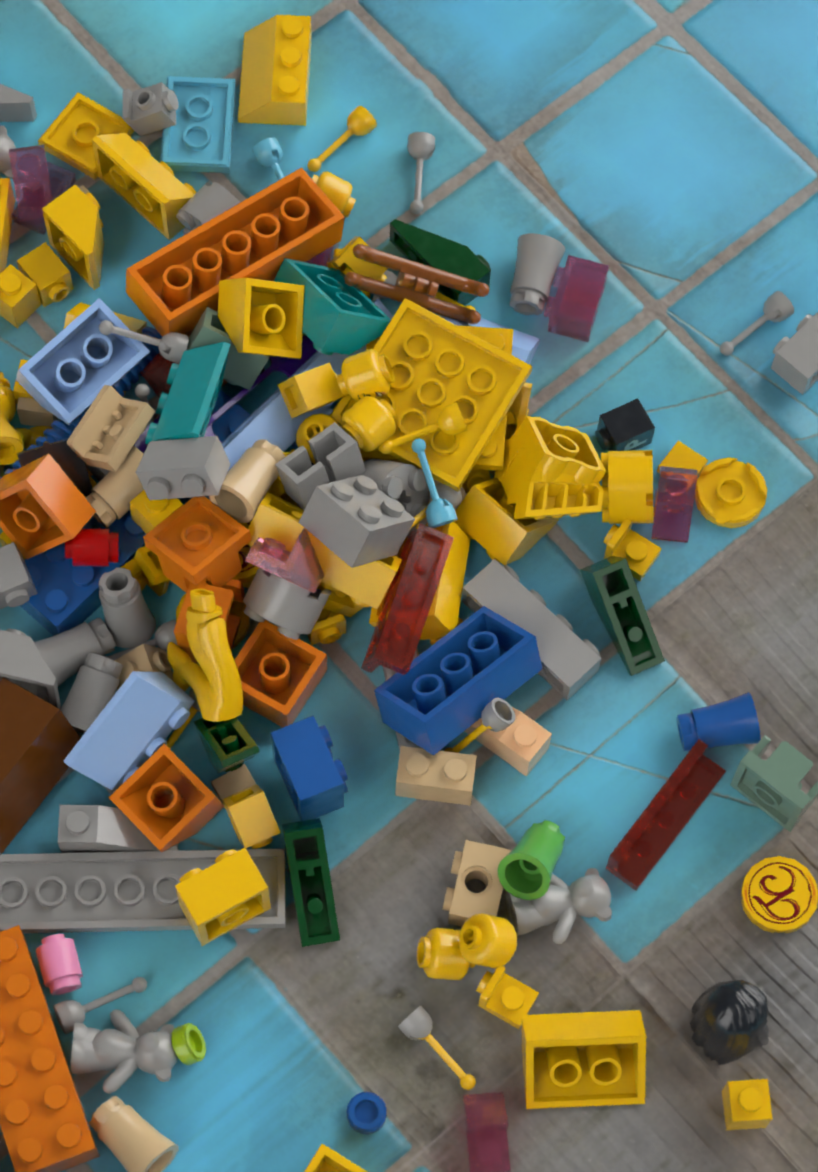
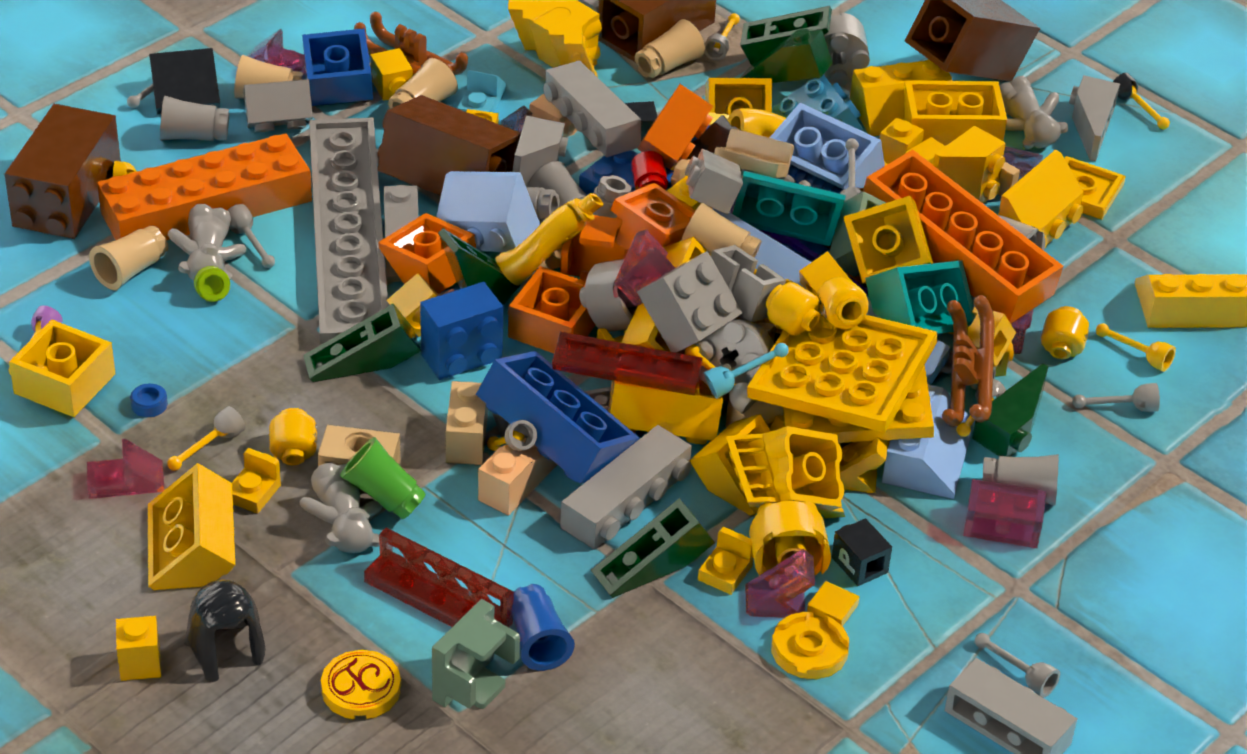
camera: 85 degrees right, 25 degrees down
(31, 181) = (1014, 130): clear pink slope -> none
(59, 964) = (283, 210): bright pink brick -> none
(150, 108) = (1119, 211): light grey brick -> none
(203, 125) = (1119, 253): medium azure tile -> none
(222, 895) = (333, 270): yellow brick -> none
(269, 154) = (1101, 296): medium azure hinge -> none
(449, 421) = (810, 364): yellow hinge -> none
(487, 940) = (296, 439): yellow head -> none

